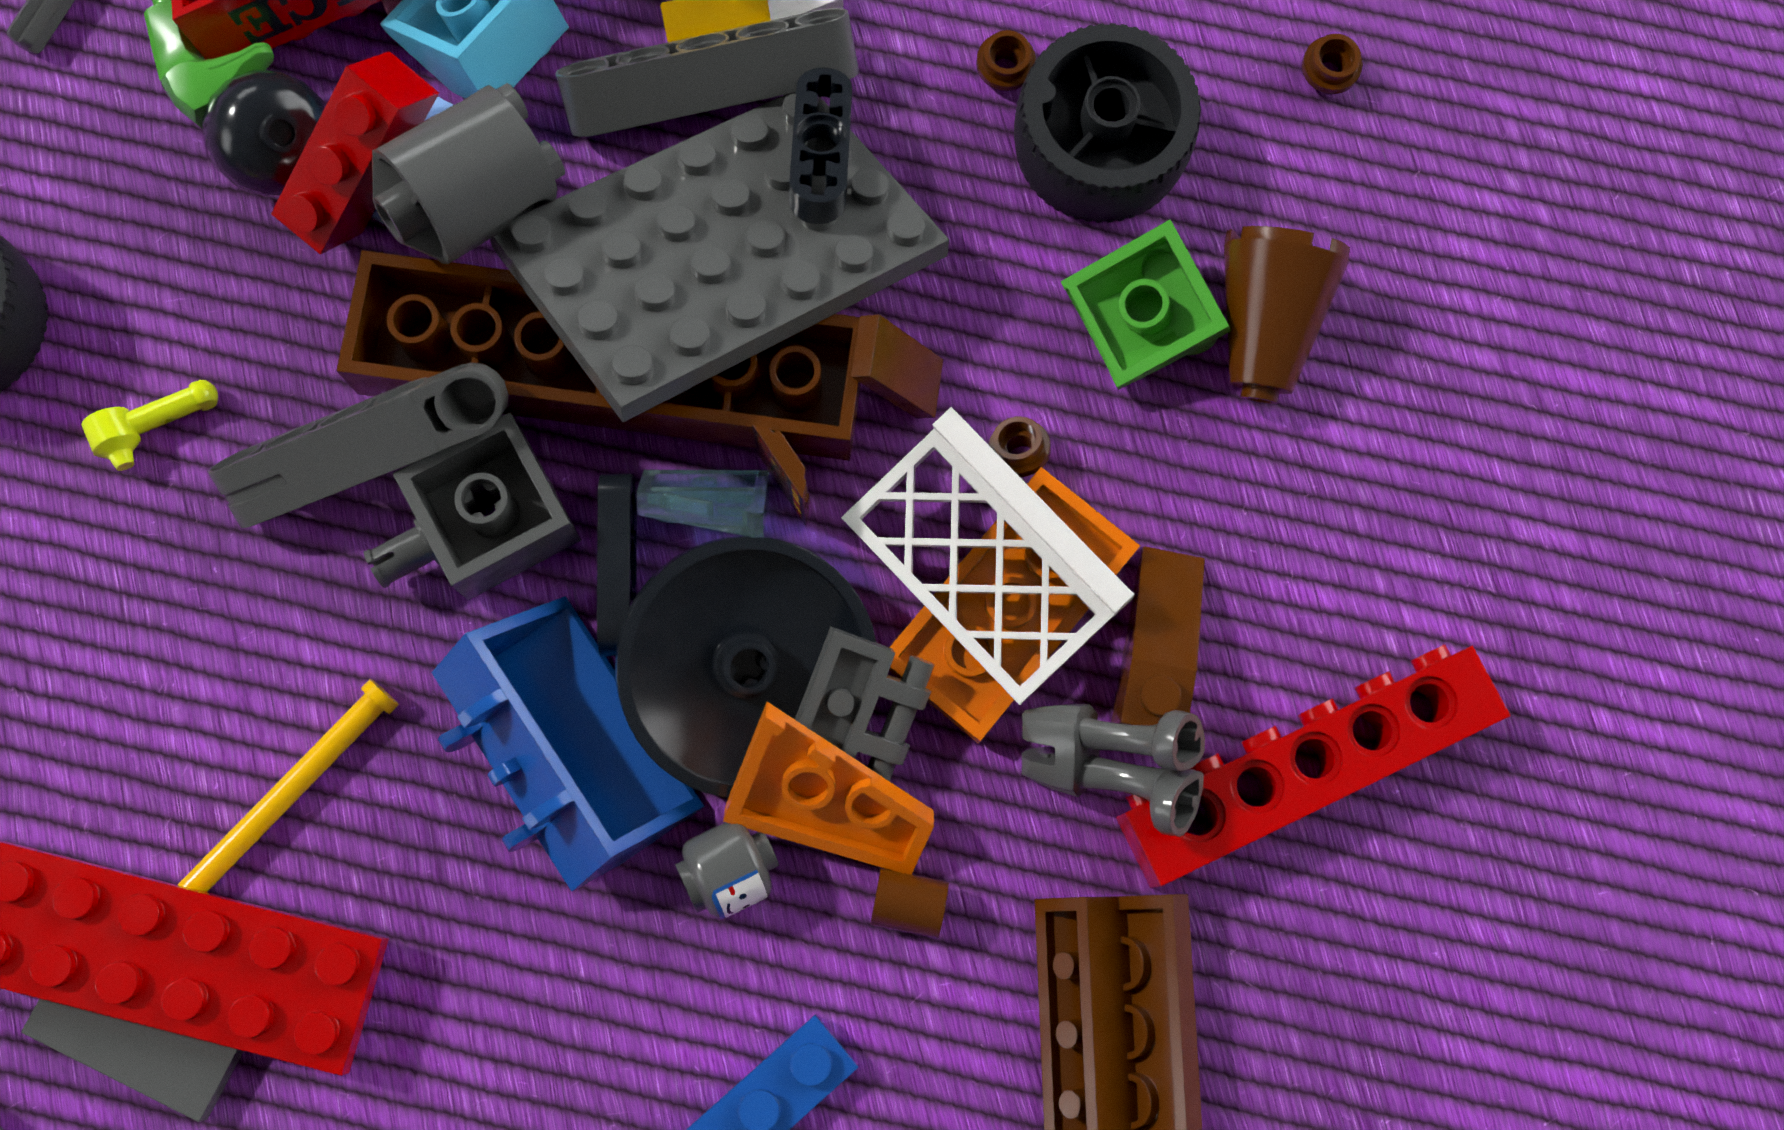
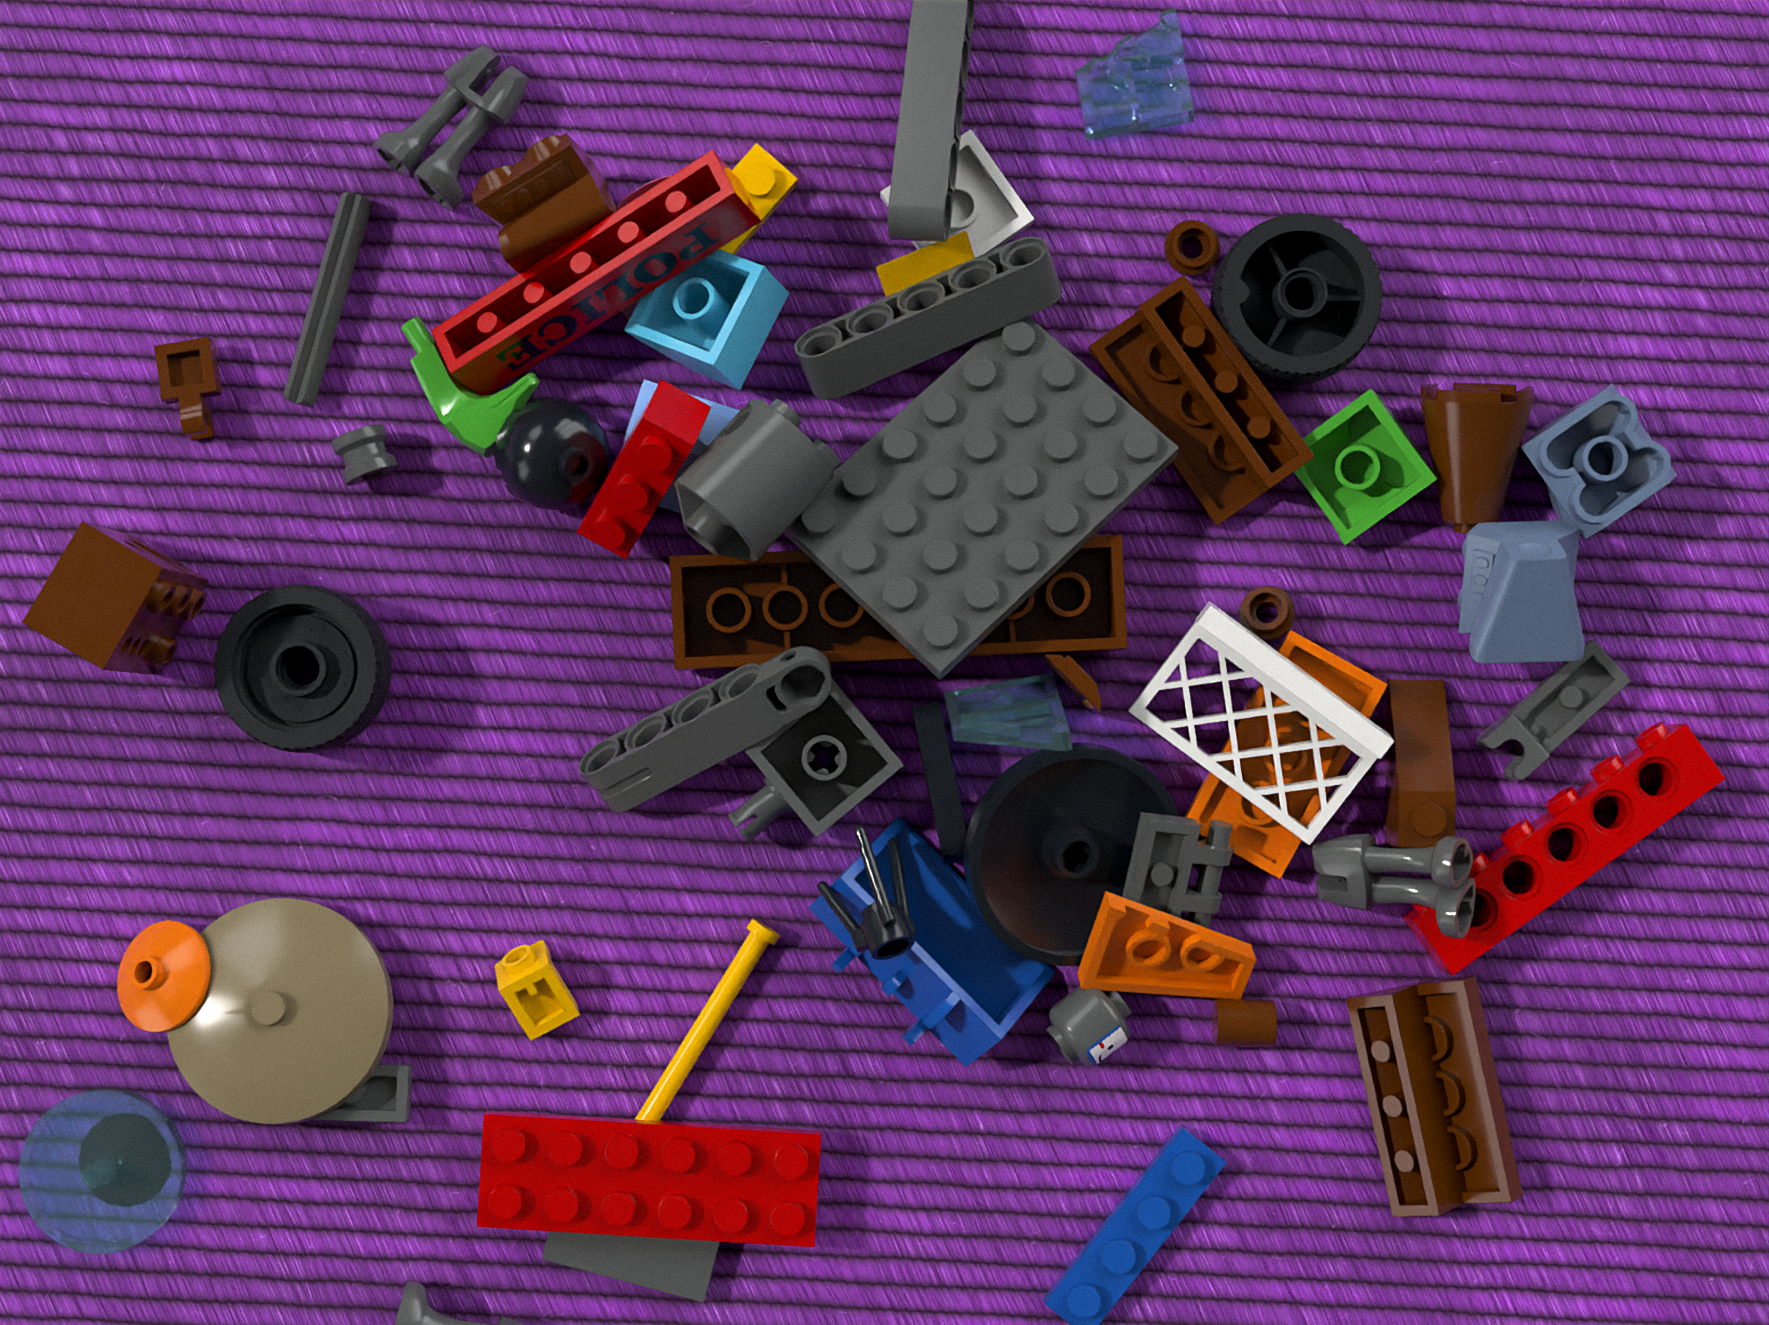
camera: 10 degrees left, 10 degrees up
(73, 104) = (364, 454): none -> dark grey wheel
(98, 713) = (534, 989): none -> yellow bracket
(116, 430) = (482, 746): neon yellow piece -> none
(498, 694) = (884, 928): none -> black plant
(832, 163) = (1039, 402): black beam -> none
(896, 366) = (1152, 568): reddish brown tile -> none
(981, 184) = (1204, 397): none -> reddish brown slope
(1305, 465) = (1521, 592): none -> sand blue piece
(1326, 609) = (1554, 710): none -> dark grey plate
(1338, 50) = (1501, 182): reddish brown plate -> none
(1409, 344) = (1598, 461): none -> sand blue piece

